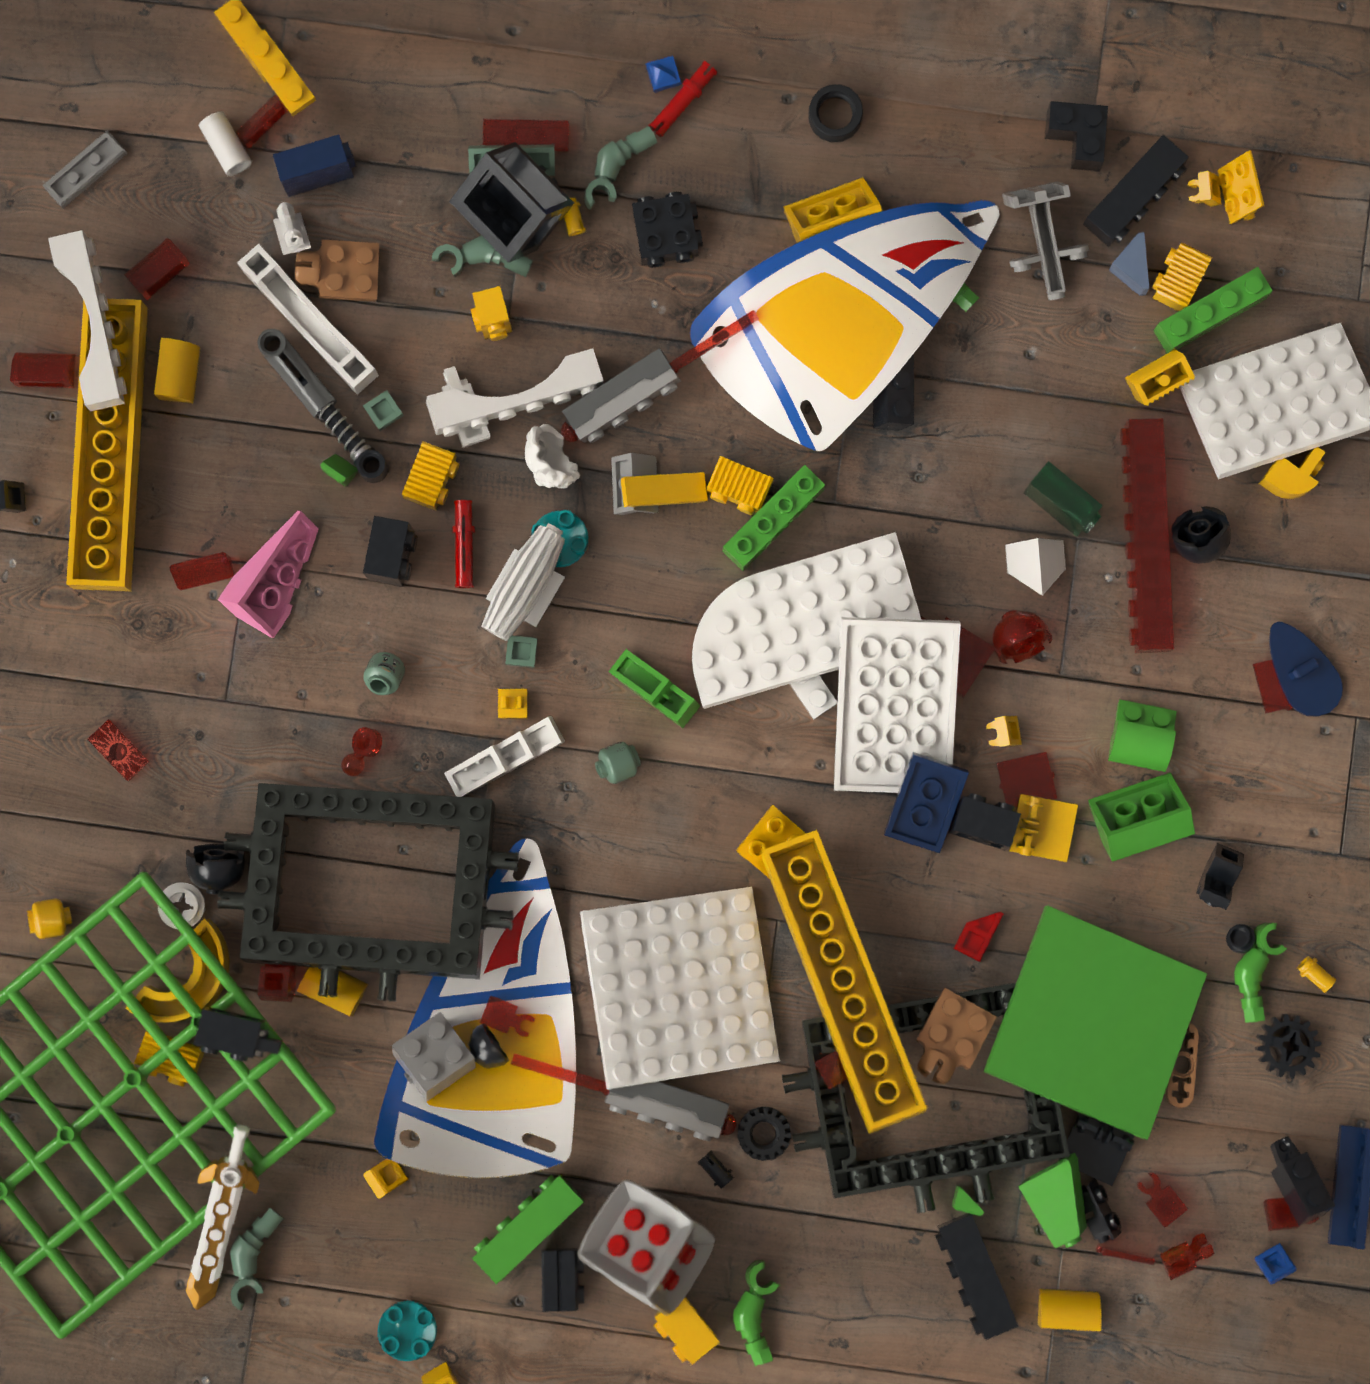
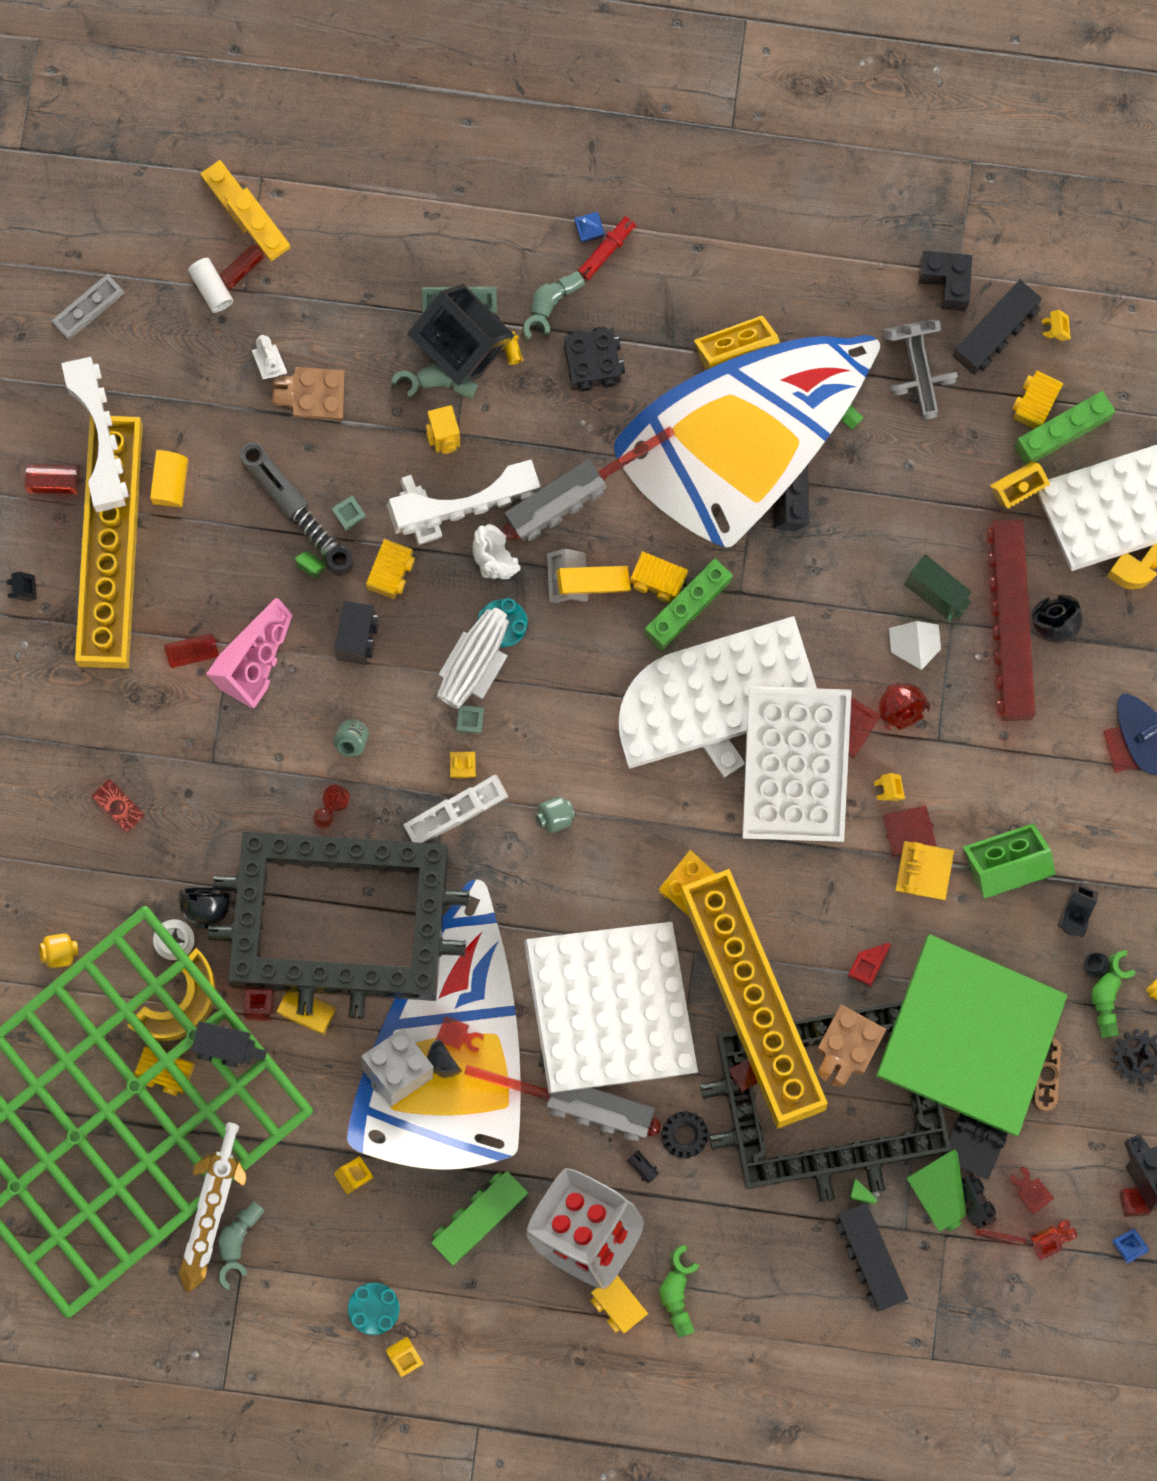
camera: 10 degrees left, 5 degrees down
(157, 268) = (151, 391): clear red brick -> none
(307, 319) = (282, 435): white arch -> none
(314, 165) = (289, 303): dark blue brick -> none
(464, 579) = (419, 598): red pin -> none
(527, 132) = (472, 276): clear red tile -> none
(560, 1280) = (507, 1262): black brick -> none
(654, 688) = (586, 751): bright green slope -> none
(835, 91) = (738, 242): black tyre -> none
(926, 802) = (823, 848): dark blue plate -> none
(985, 822) = (874, 864): black brick -> none
(1069, 1310) = (952, 1286): yellow brick -> none
(1132, 265) = (995, 390): sand blue slope -> none
(1143, 736) = (1009, 791): bright green brick -> none
(1240, 188) = (1087, 324): yellow hinge -> none

